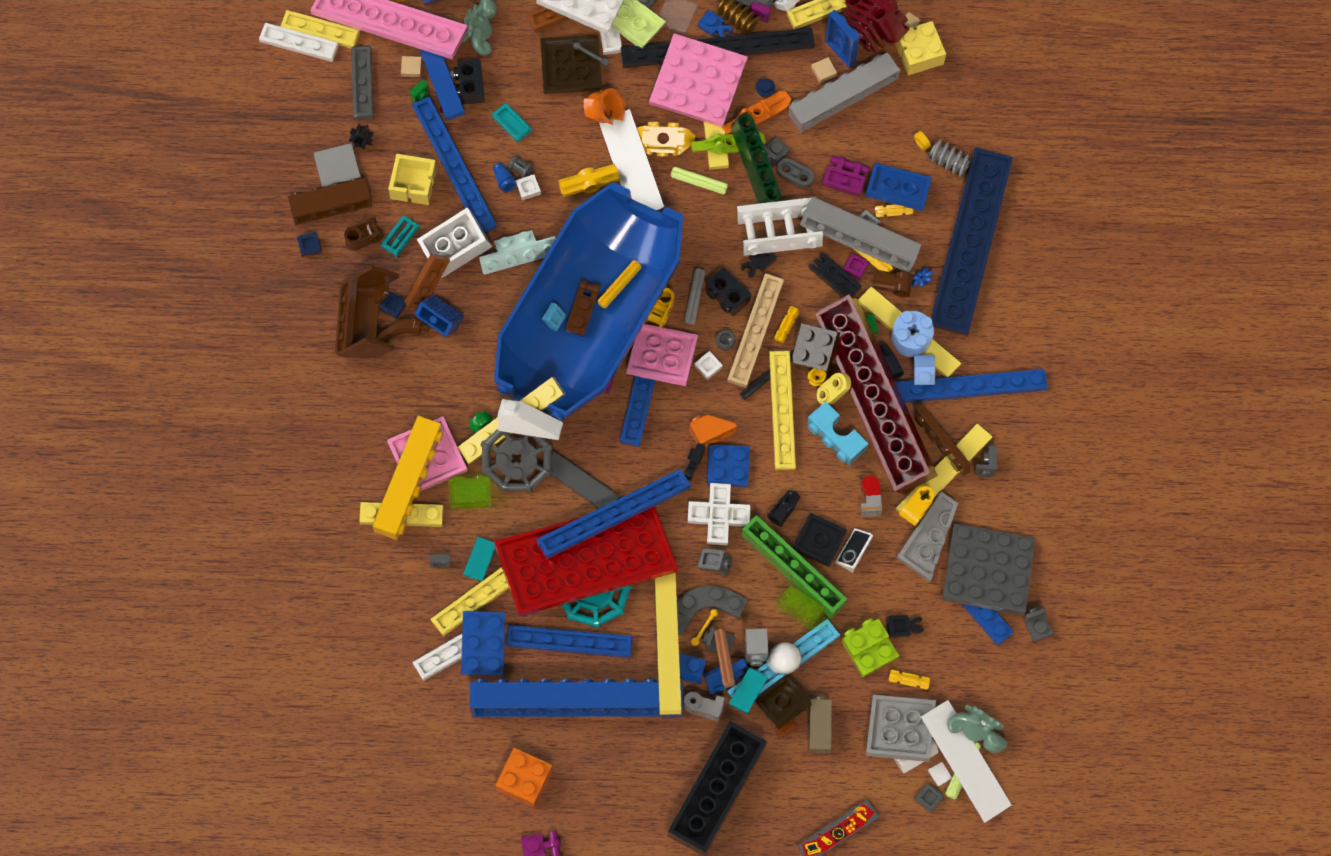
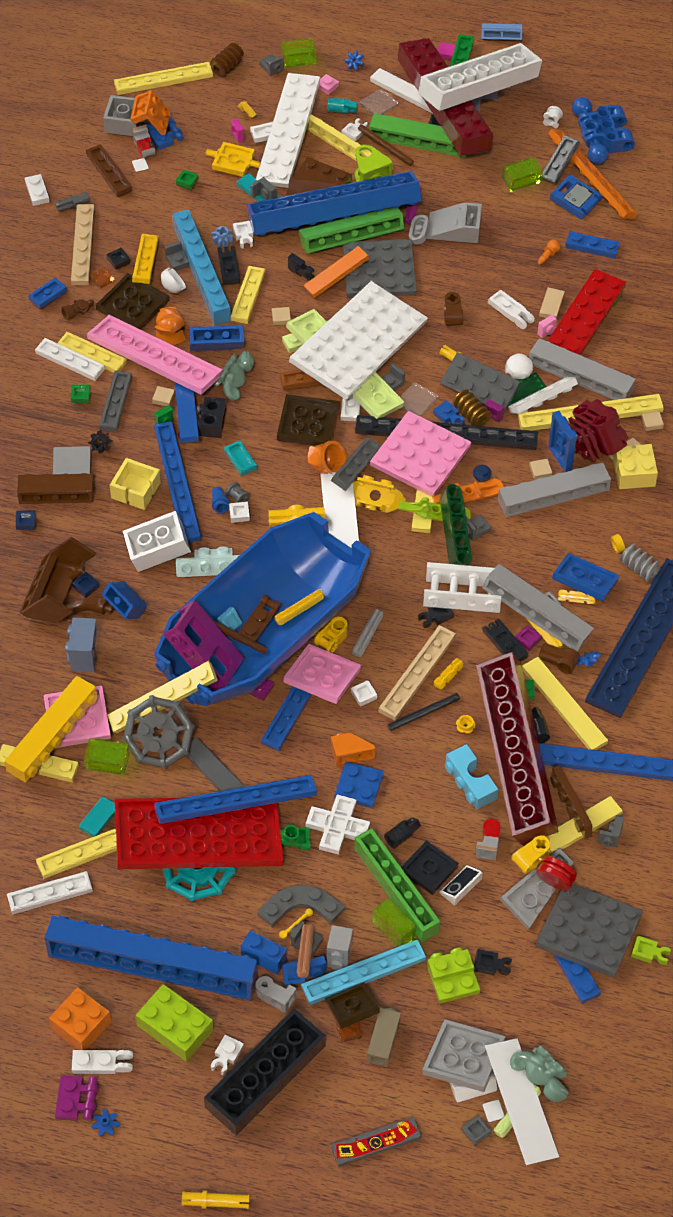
camera: 15 degrees right, 15 degrees down
(322, 82) = (80, 393): none -> green plate
(365, 233) = (74, 521): reddish brown piece -> none
(391, 249) = (112, 532): teal tile -> none
(412, 380) = (81, 645): none -> sand blue brick
(427, 279) = (122, 564): dark orange plate -> none
(440, 561) = (60, 809): dark grey tile -> none
(479, 421) = (133, 694): green plate -> none
(482, 643) = (77, 889): blue plate -> none
(526, 420) = (172, 693): white slope -> none
(549, 350) = (212, 642): none -> magenta window
(554, 813) = (100, 1061): none -> white hinge
(560, 332) = (241, 638): none -> reddish brown bar
(569, 641) = (162, 908): blue tile -> none
(605, 62) = (339, 423): dark grey hinge -> none
(616, 759) = (174, 1022): none -> lime brick
(635, 106) = (356, 463): none -> dark grey tile
(667, 645) = (252, 925): light yellow tile -> none
(674, 775) = (227, 1051): none -> white plate
(684, 537) = (296, 837): none -> green plate
(695, 457) = (329, 770): black plate -> none
(699, 180) = (399, 537): yellowish green axle -> none
(715, 561) = (323, 864): dark grey bracket -> none
(725, 340) = (386, 675): dark grey tile -> none
(732, 289) = (403, 633): black brick -> none
(748, 690) = (321, 987): teal tile -> none
(782, 410) = (423, 746): light yellow tile -> none
(784, 658) = (364, 964): white hair -> none
(796, 172) = (492, 548): dark grey plate -> none
(815, 347) = (469, 695): plate -> none
(831, 391) = (478, 734): light yellow plate -> none
(844, 180) = (536, 563): magenta plate -> none
(909, 679) = (484, 1014): yellow axle -> none
(916, 323) = (565, 702): light blue brick -> none
(924, 369) = (569, 736): light blue brick -> none
(947, 522) = (556, 873): none -> red head
(1038, 624) = (626, 990): dark grey bracket -> none
(1048, 578) = (647, 951): none -> lime plate

